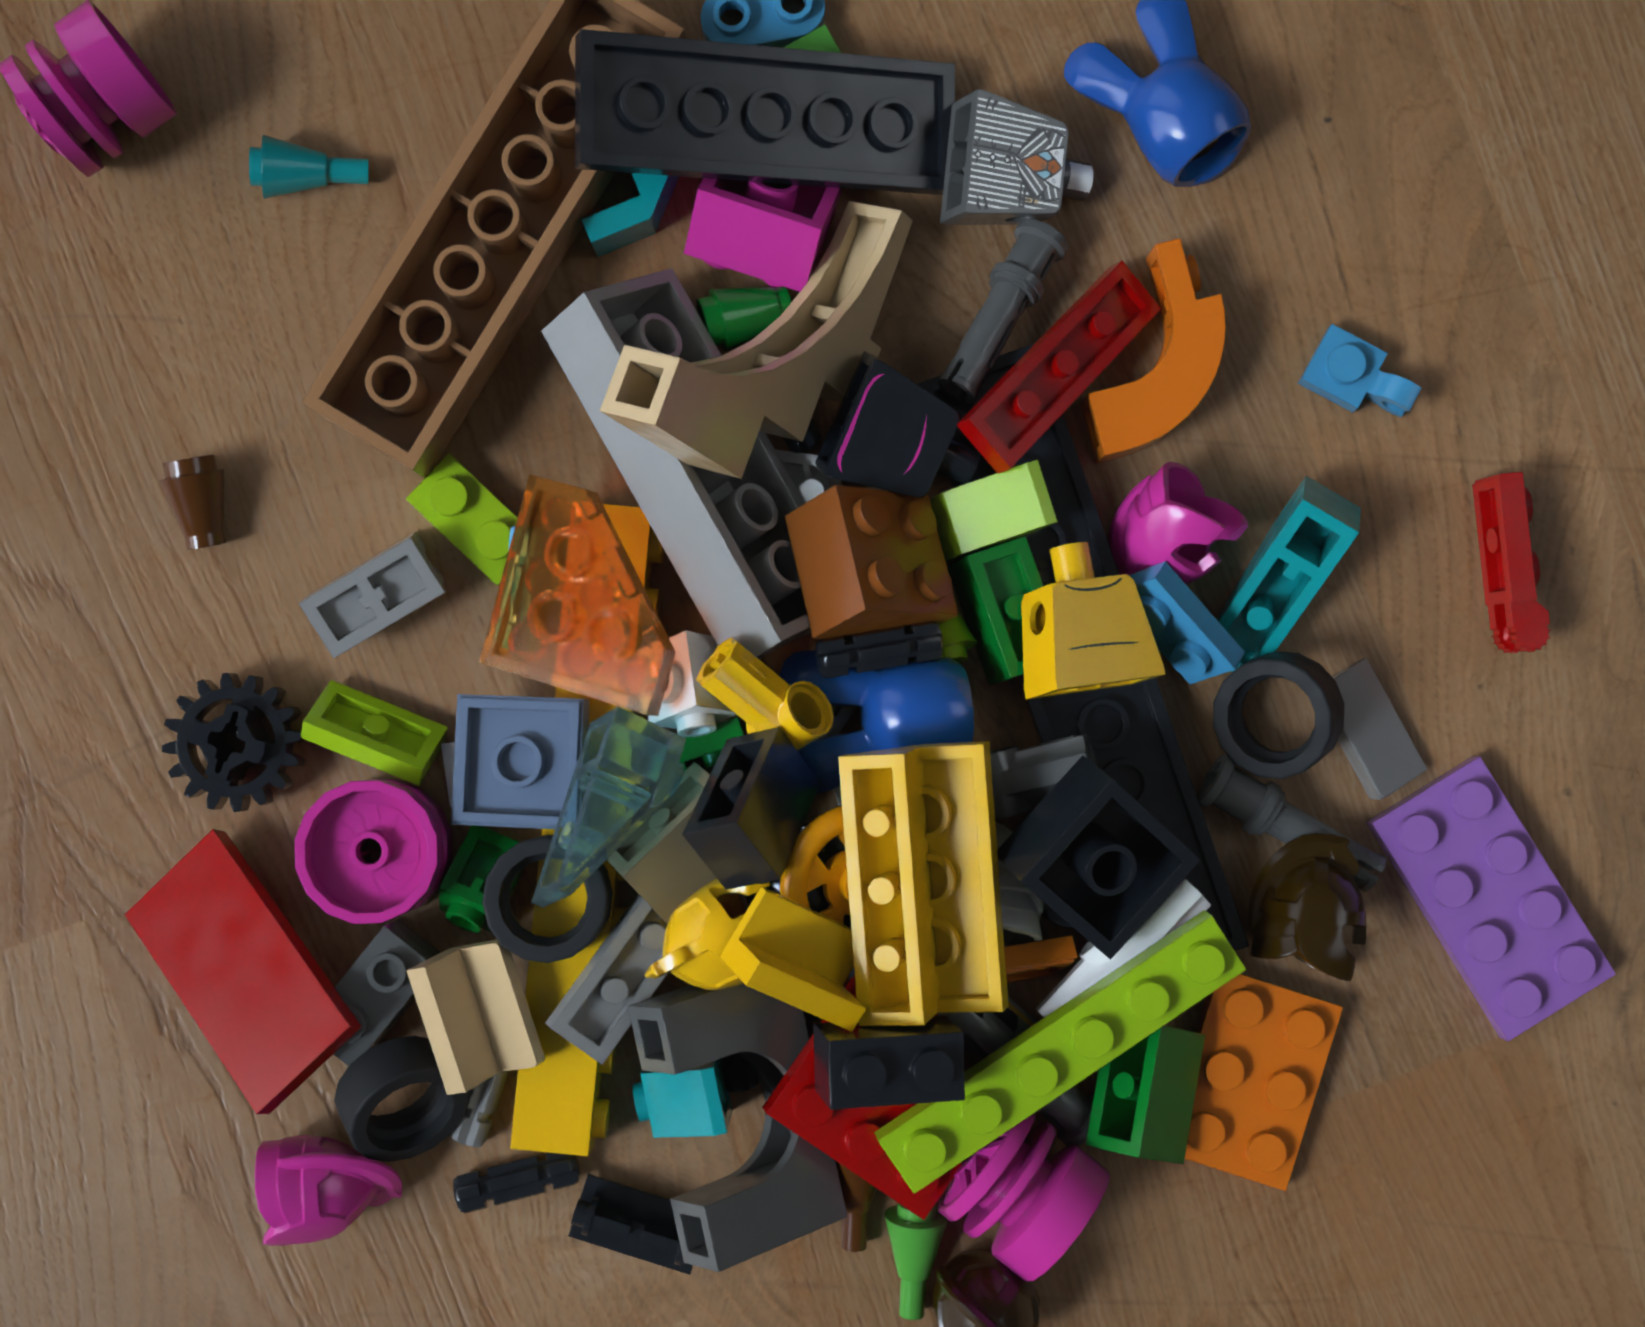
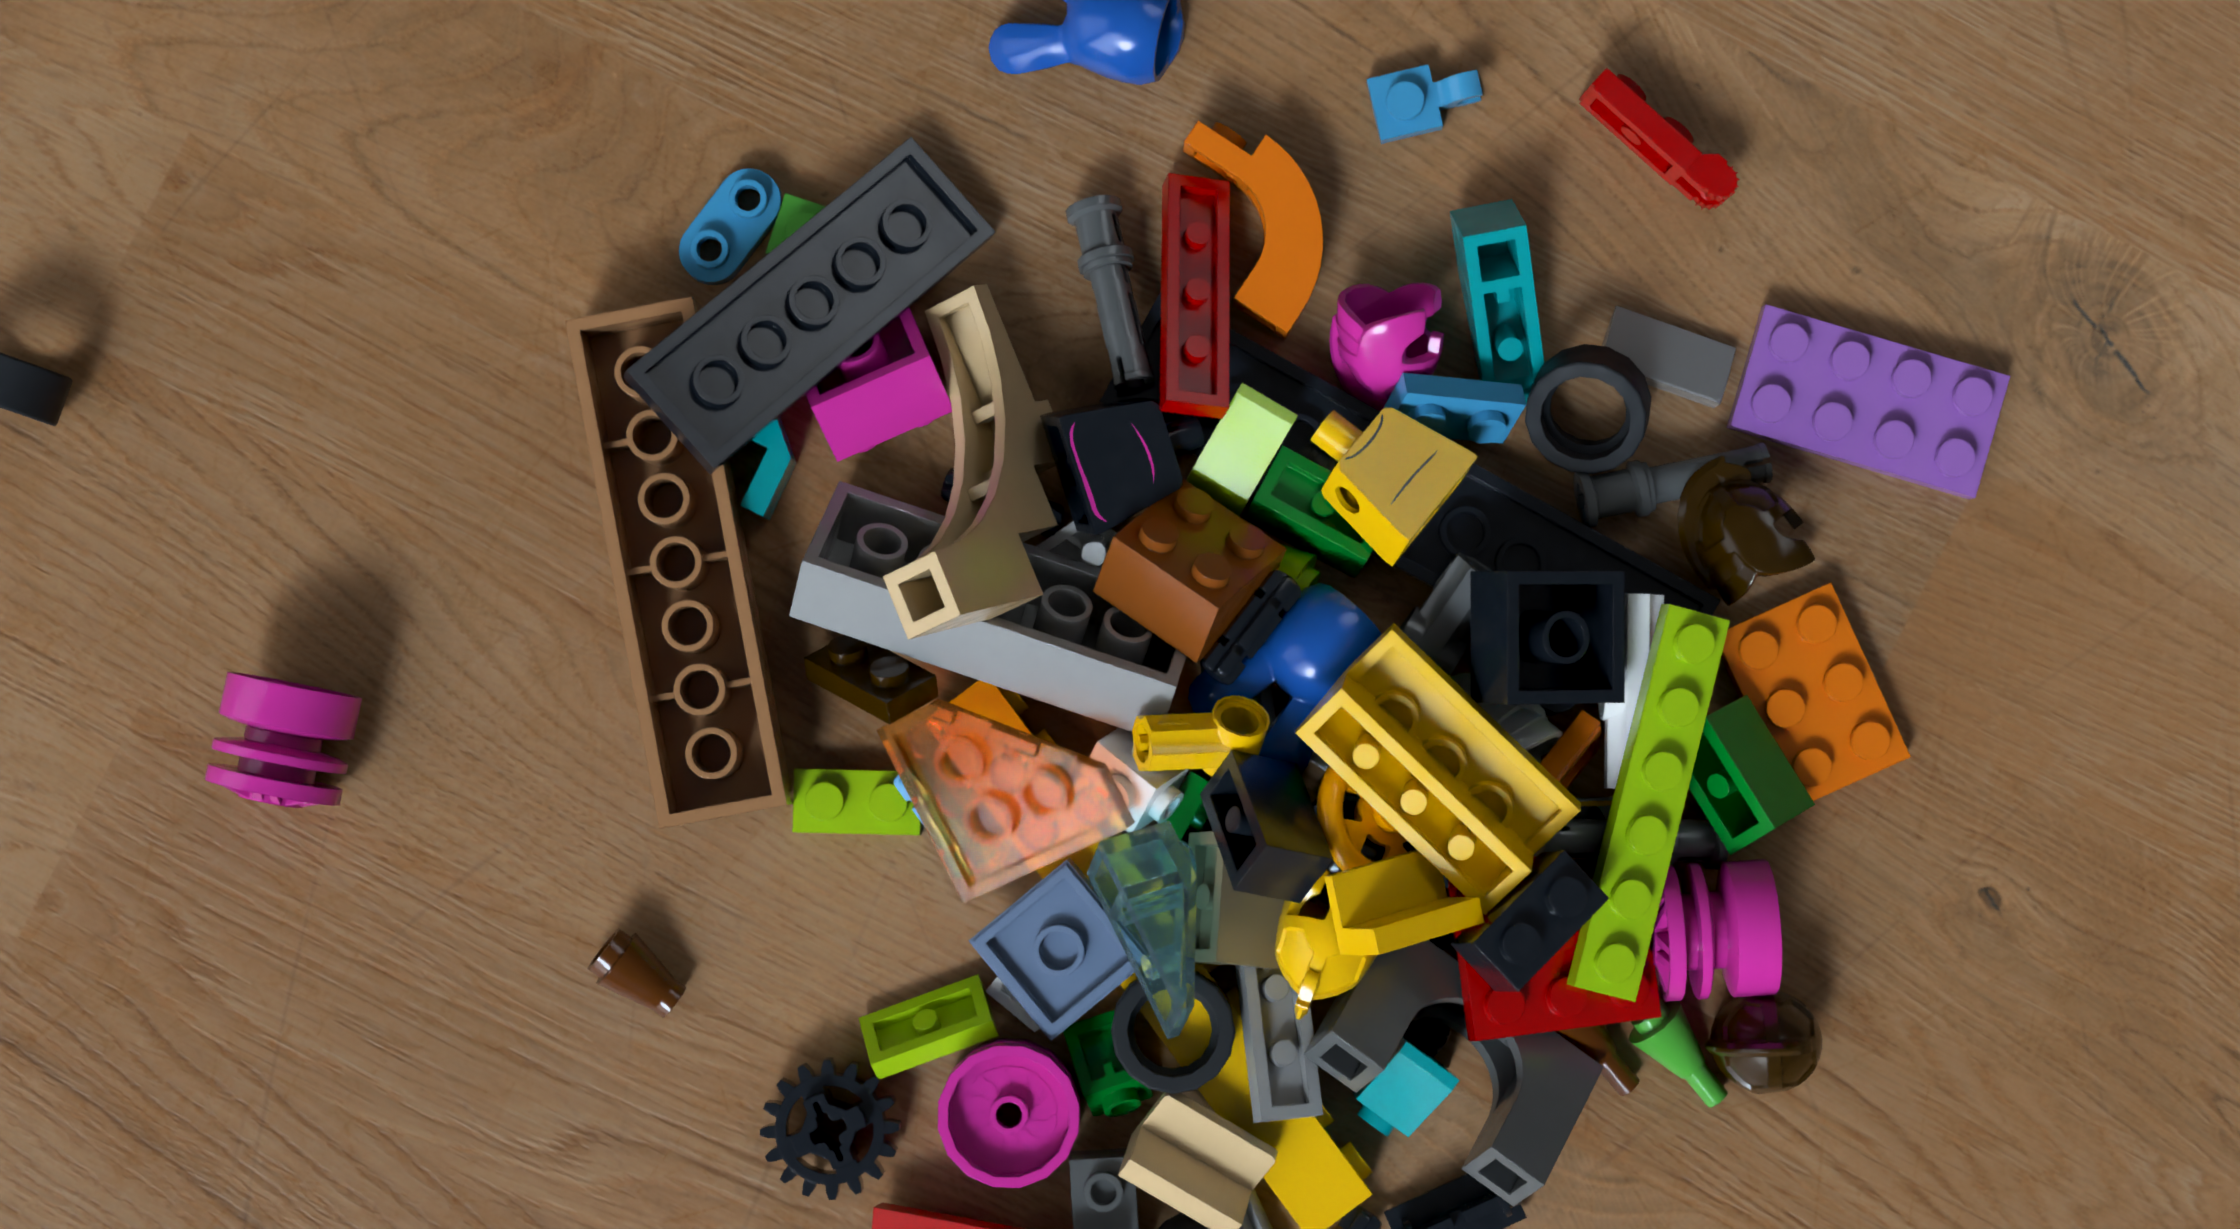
camera: 35 degrees left, 0 degrees up
(292, 168) = (481, 661): teal cone -> none
(373, 595) = (835, 924): light grey hinge -> none
(562, 434) = (871, 678): none -> dark brown plate
(740, 313) = (919, 466): green cone -> none
(1007, 164) = (1019, 178): dark grey torso -> none

